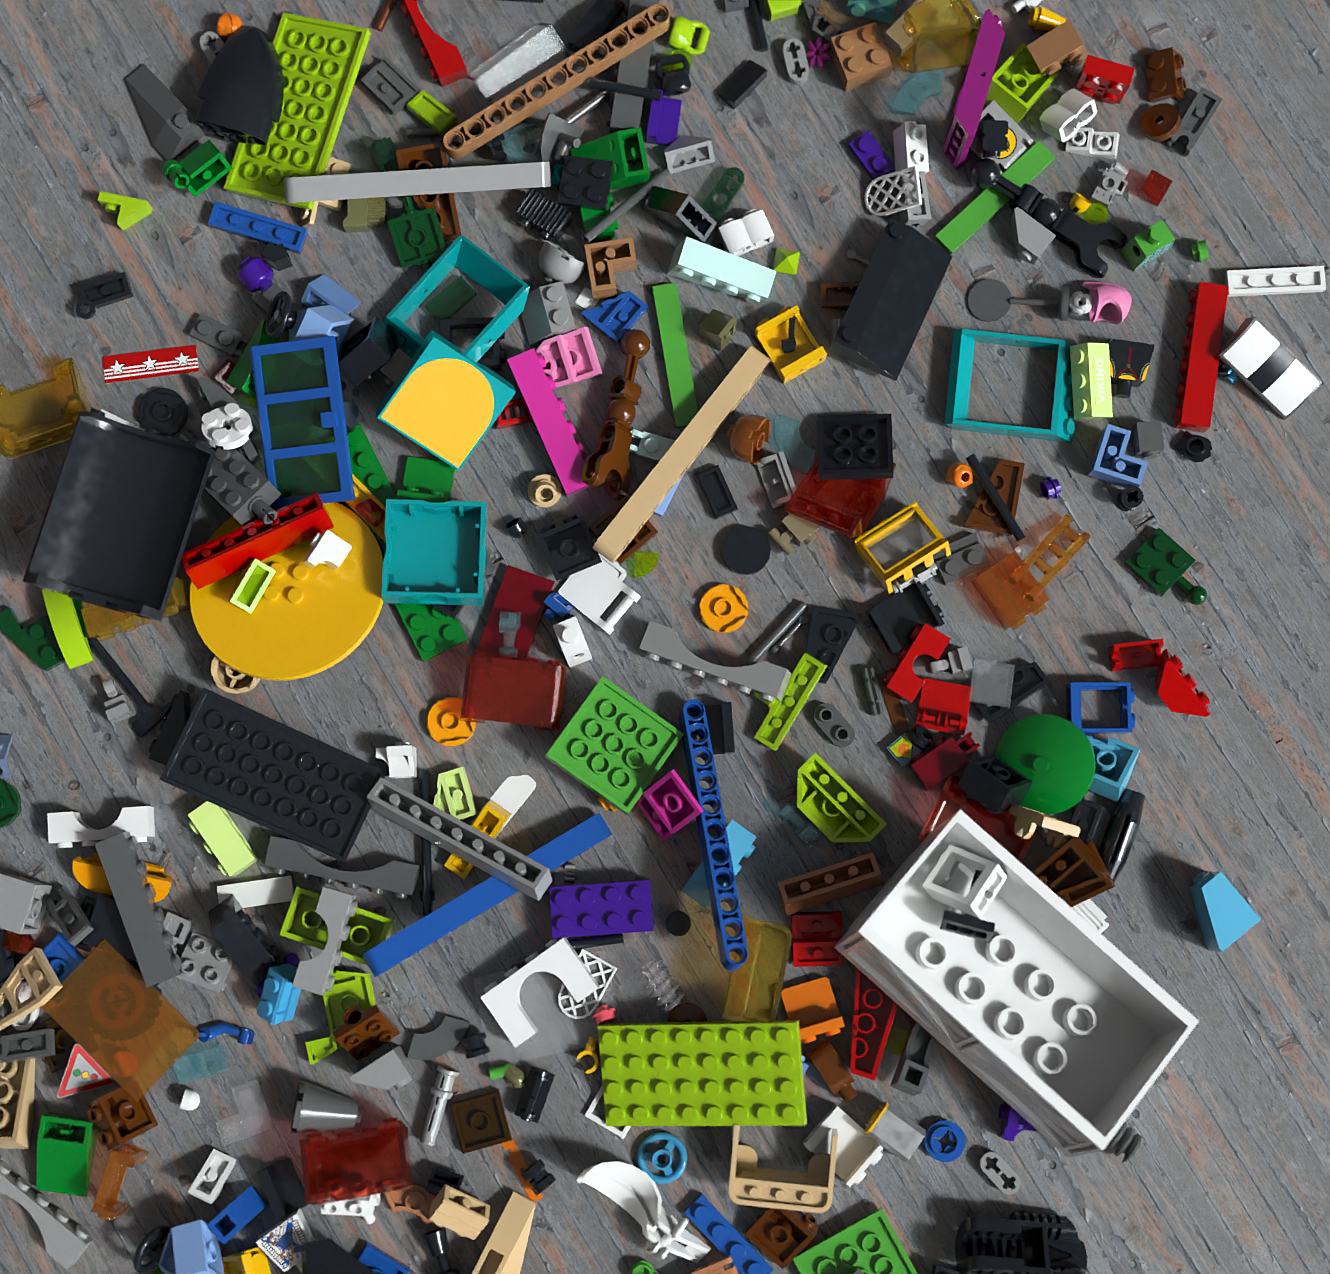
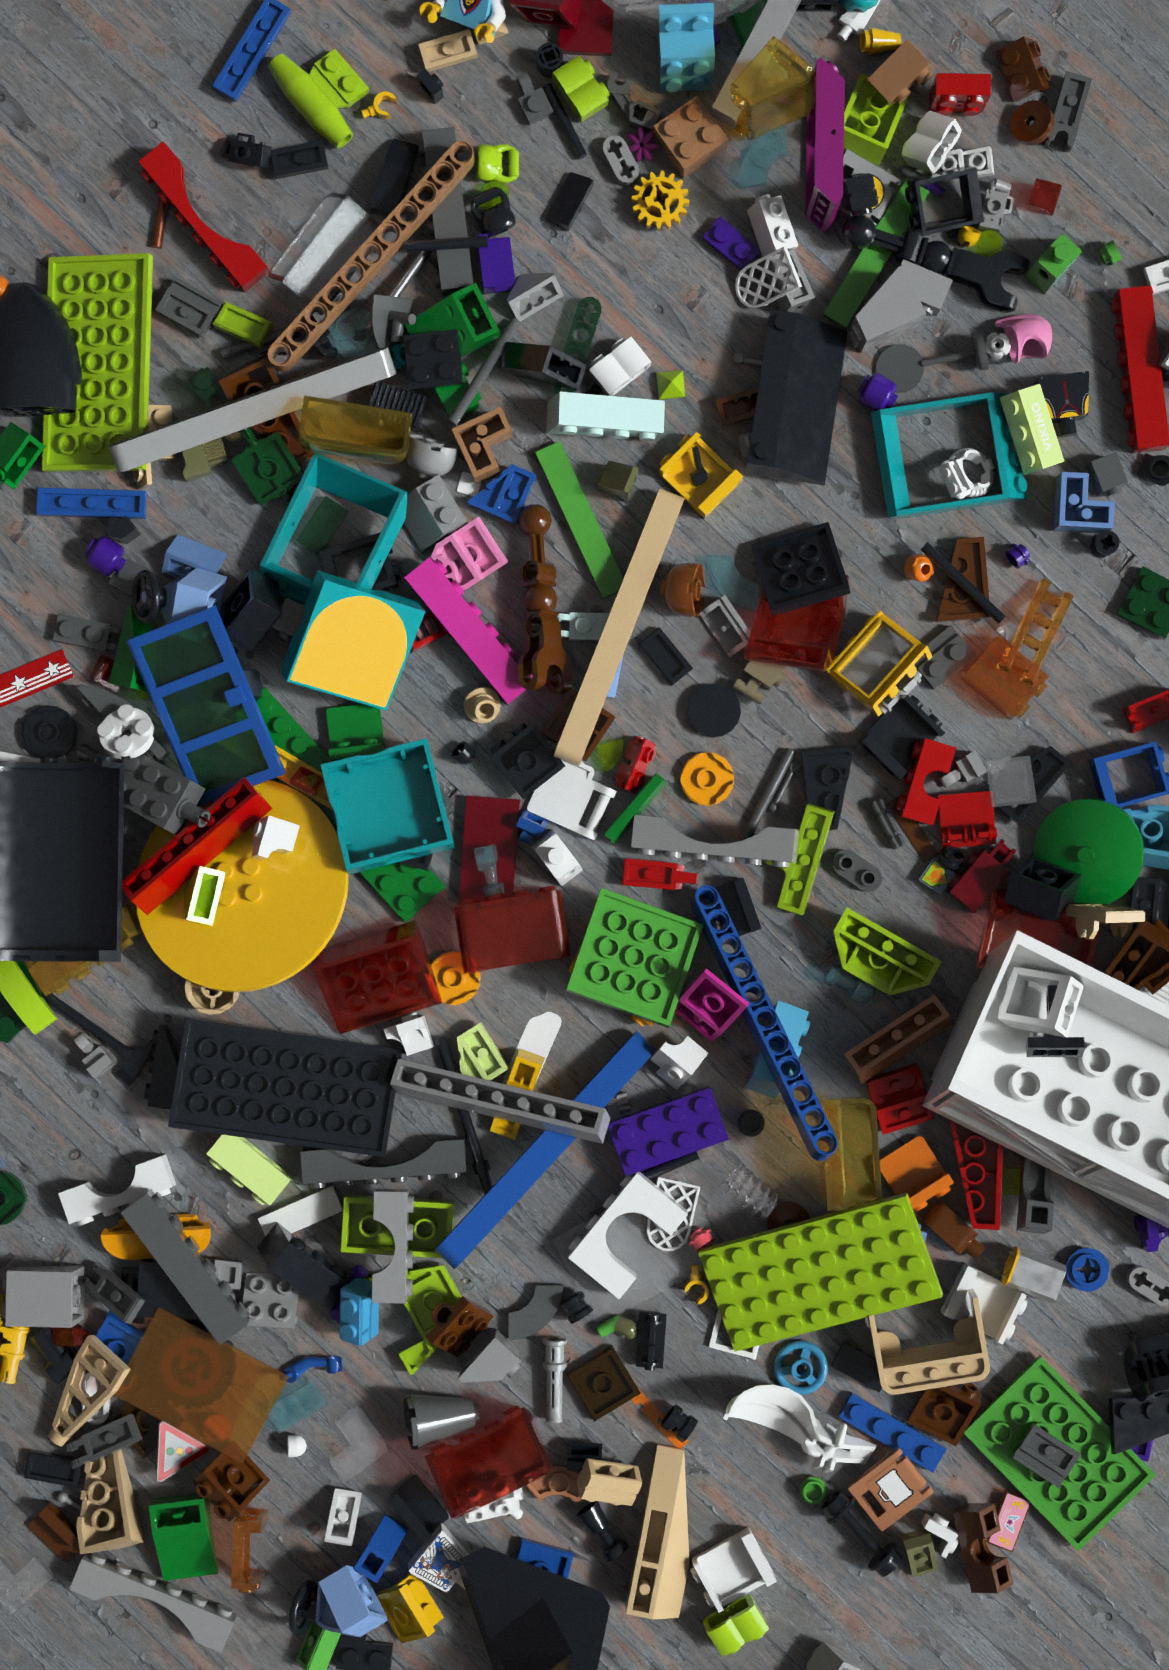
camera: 20 degrees left, 5 degrees up
(383, 701) = (376, 977): none -> clear red slope
(498, 223) = (354, 431): none -> clear yellow windscreen
(628, 849) = (678, 1061): none -> white brick
(654, 614) = (635, 807): none -> green tile
(655, 679) = (655, 874): none -> red hinge
(671, 570) = (640, 753): none -> red hinge
(713, 1170) = (857, 1365): none -> black tile
(810, 104) = (650, 204): none -> yellow gear
(964, 314) = (877, 392): none -> dark purple head
(991, 249) = (888, 313): none -> light grey slope
(1013, 408) = (956, 480): none -> white piece
(1053, 146) = (910, 173): none -> piece
(1089, 172) = (970, 198): none -> black window

